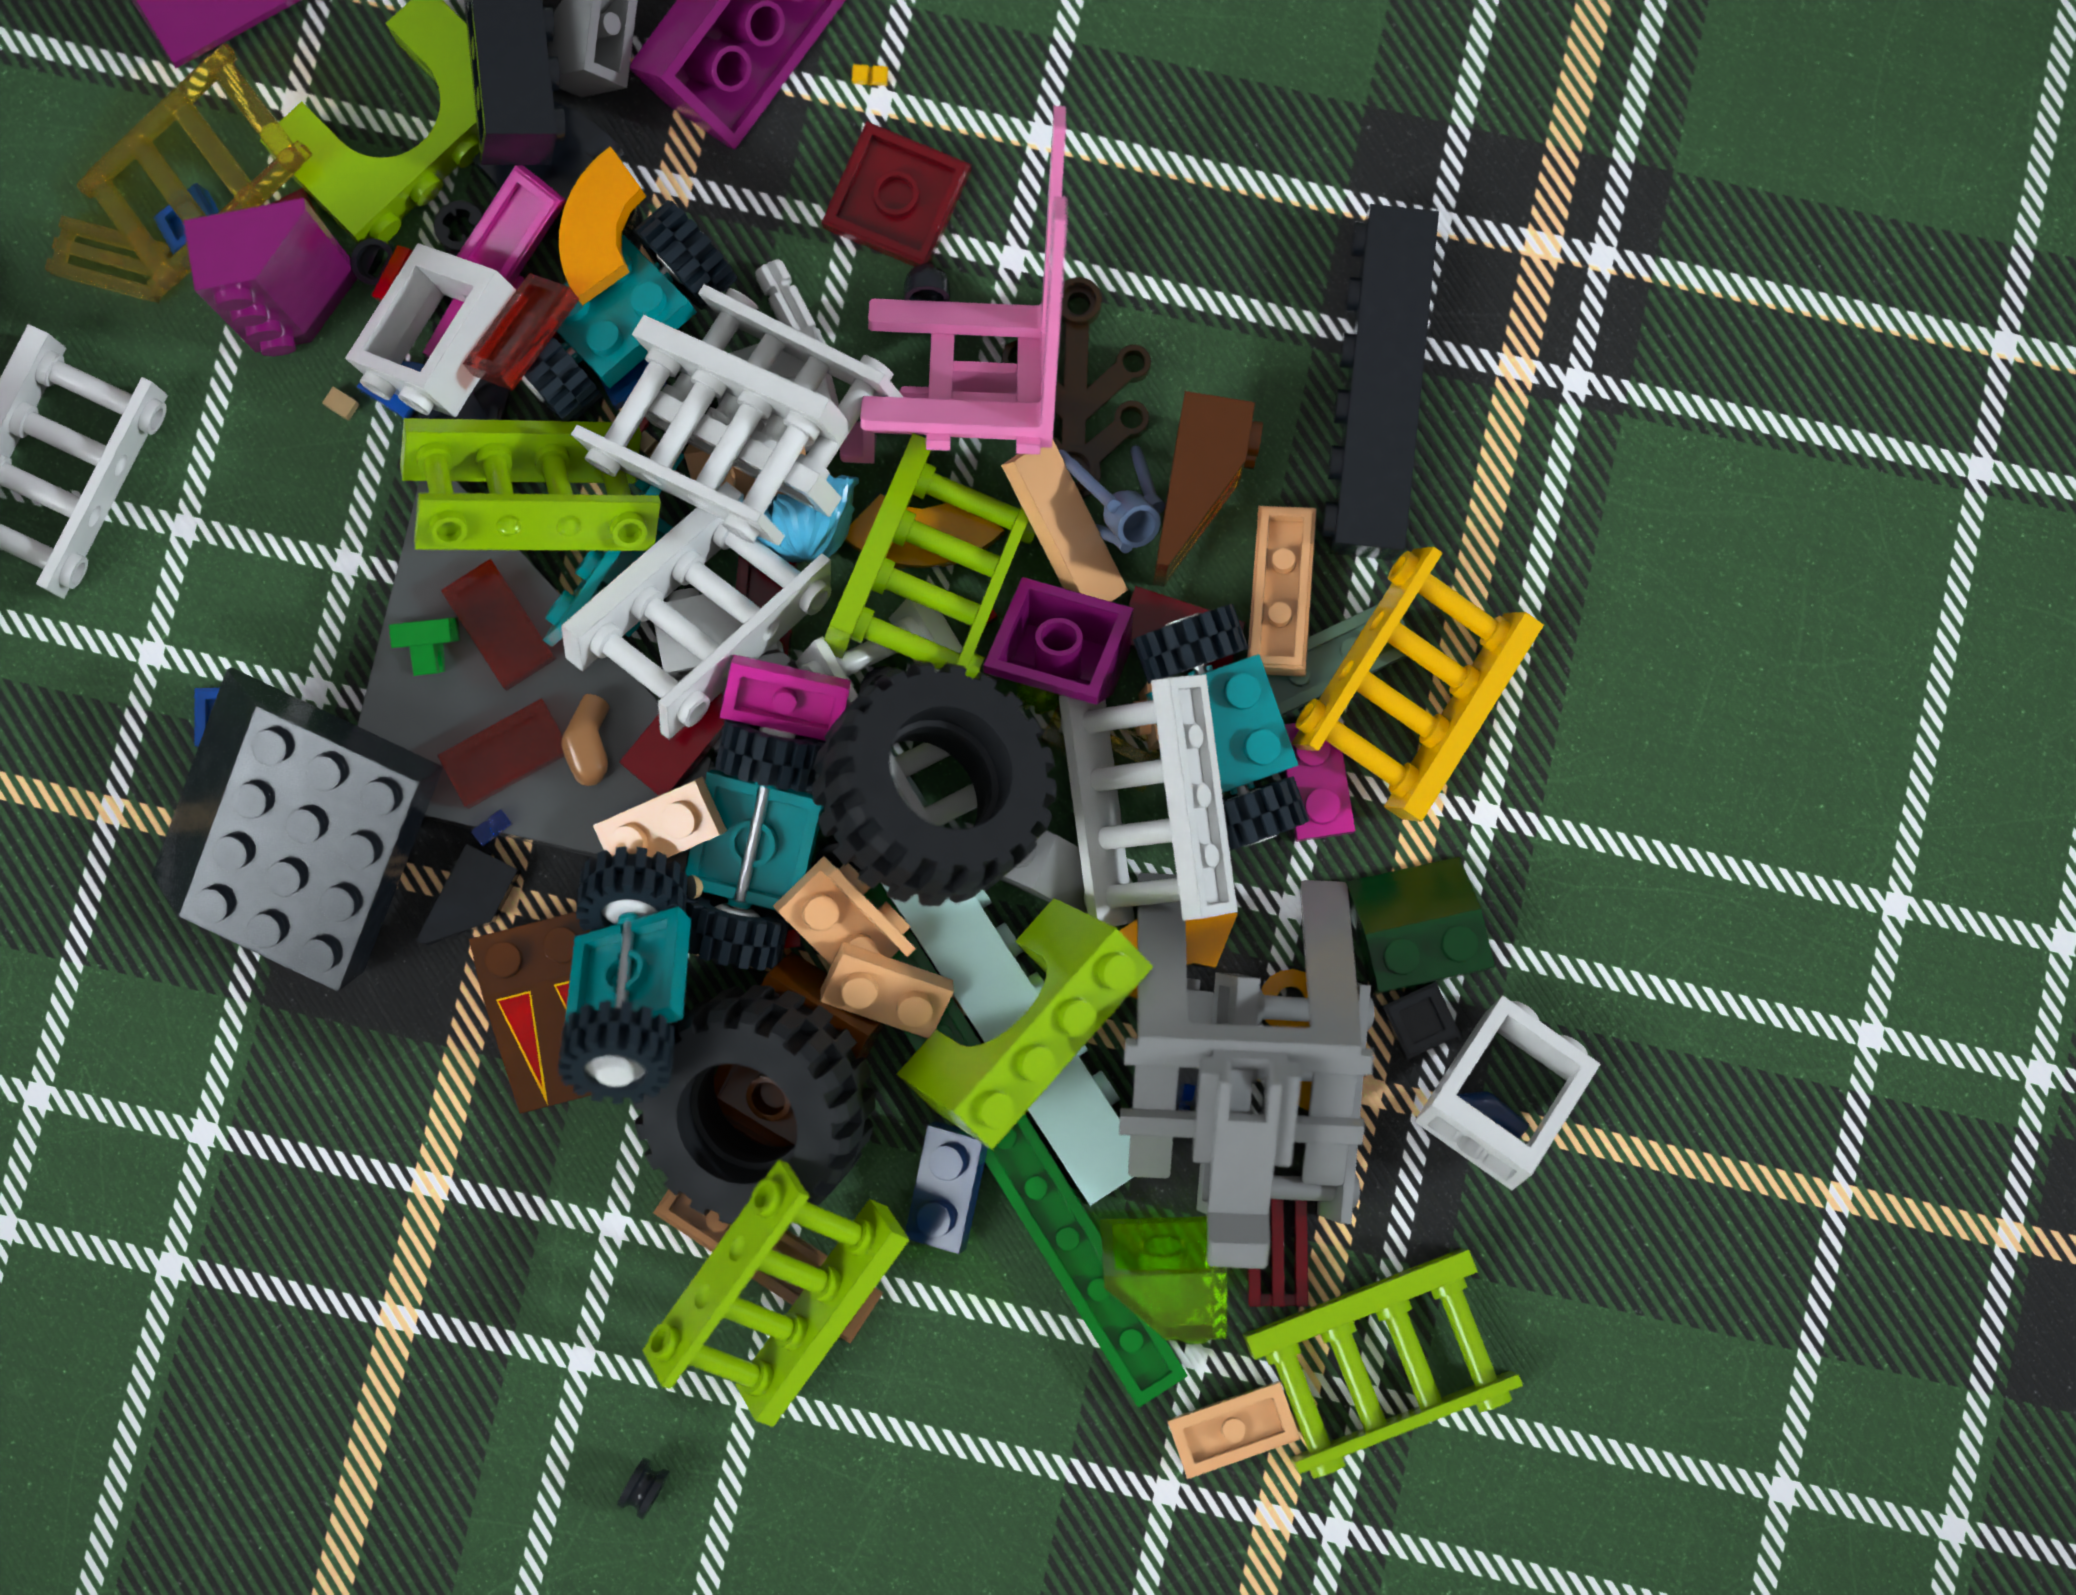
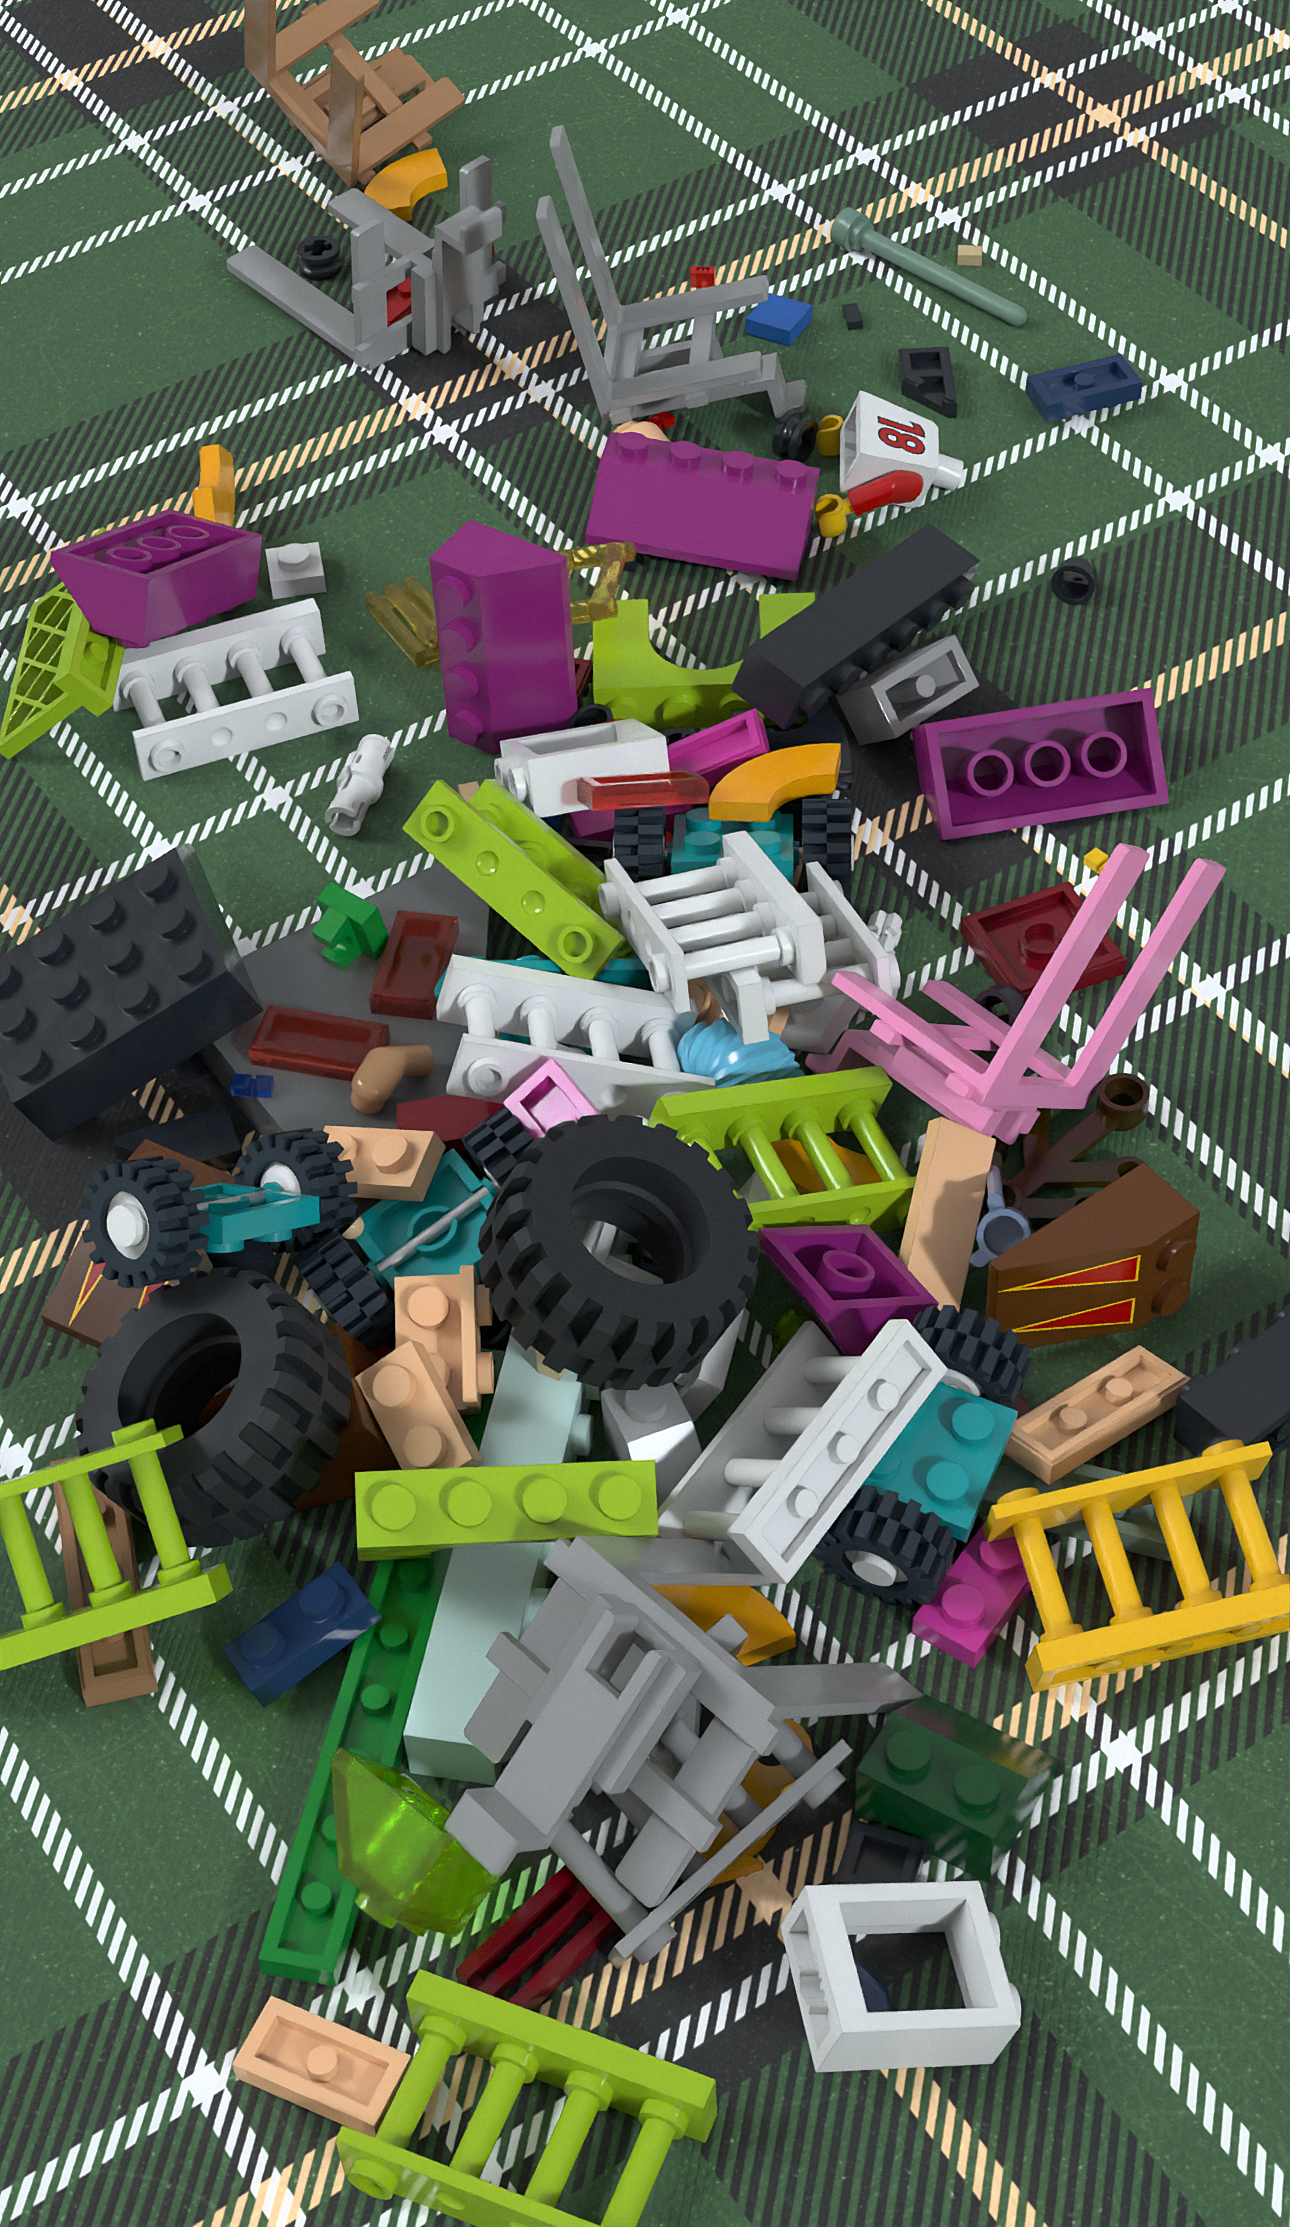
camera: 45 degrees right, 35 degrees down
(250, 469) = (359, 785): none -> white pin

